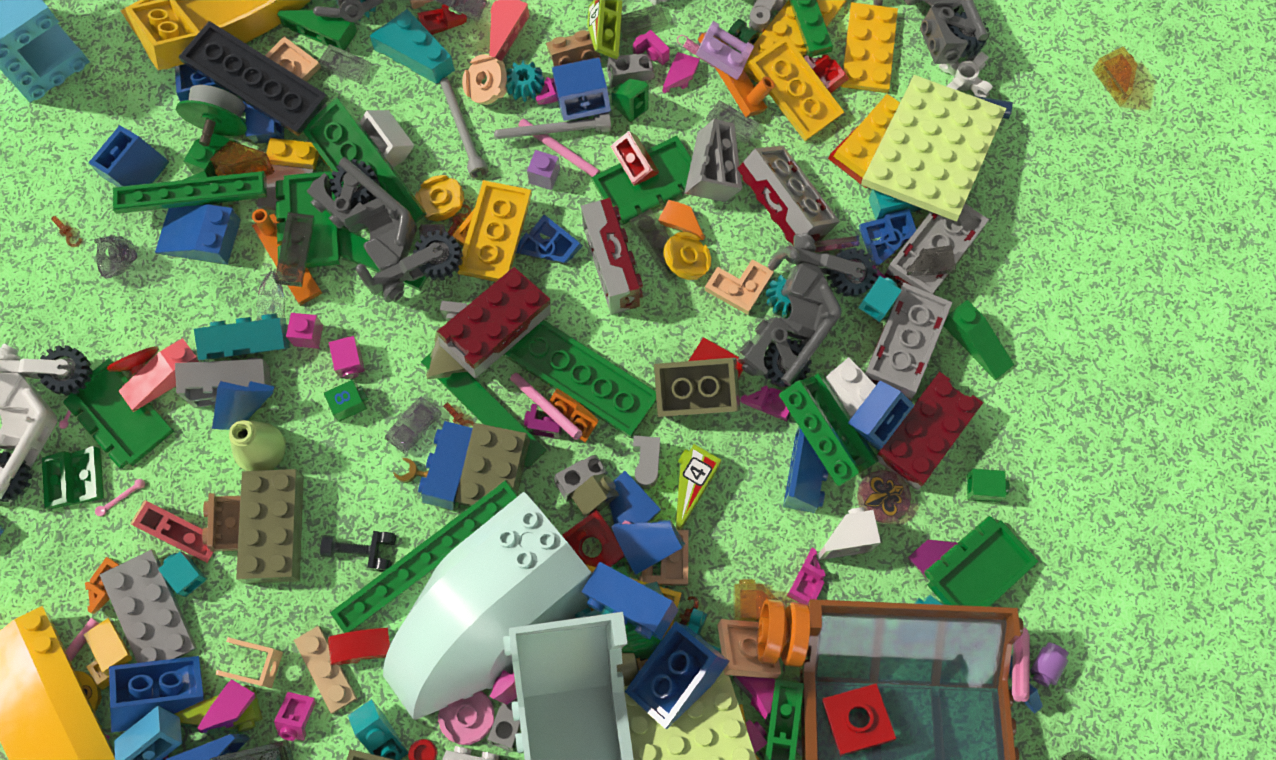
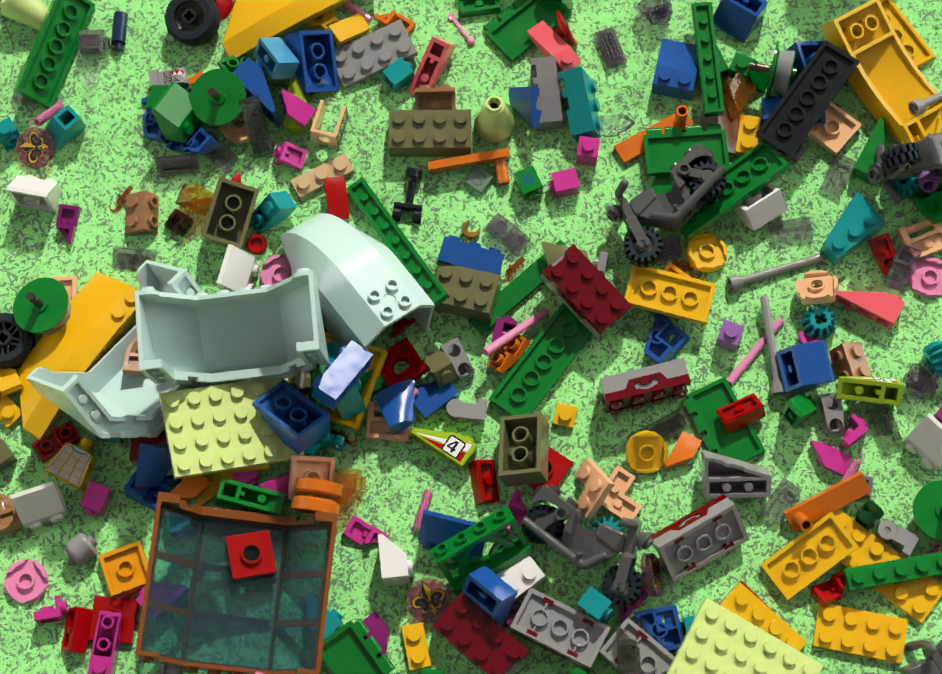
camera: 95 degrees right, 0 degrees up
(163, 311) = (610, 48): none -> tile
(294, 249) = (654, 139): clear smoke plate -> none
(308, 439) = (497, 157): none -> orange piece
(337, 463) = (478, 180): none -> sand green tile
(411, 112) = (790, 230): none -> tile
(645, 349) = (565, 415): none -> yellow plate
(722, 55) = (839, 488): lavender plate -> none
(733, 305) = (596, 490): none -> light nougat plate
(733, 439) = (484, 481): none -> red slope
(774, 510) = (424, 504): none -> bright pink piece
(941, 508) = (416, 646): none -> yellow plate

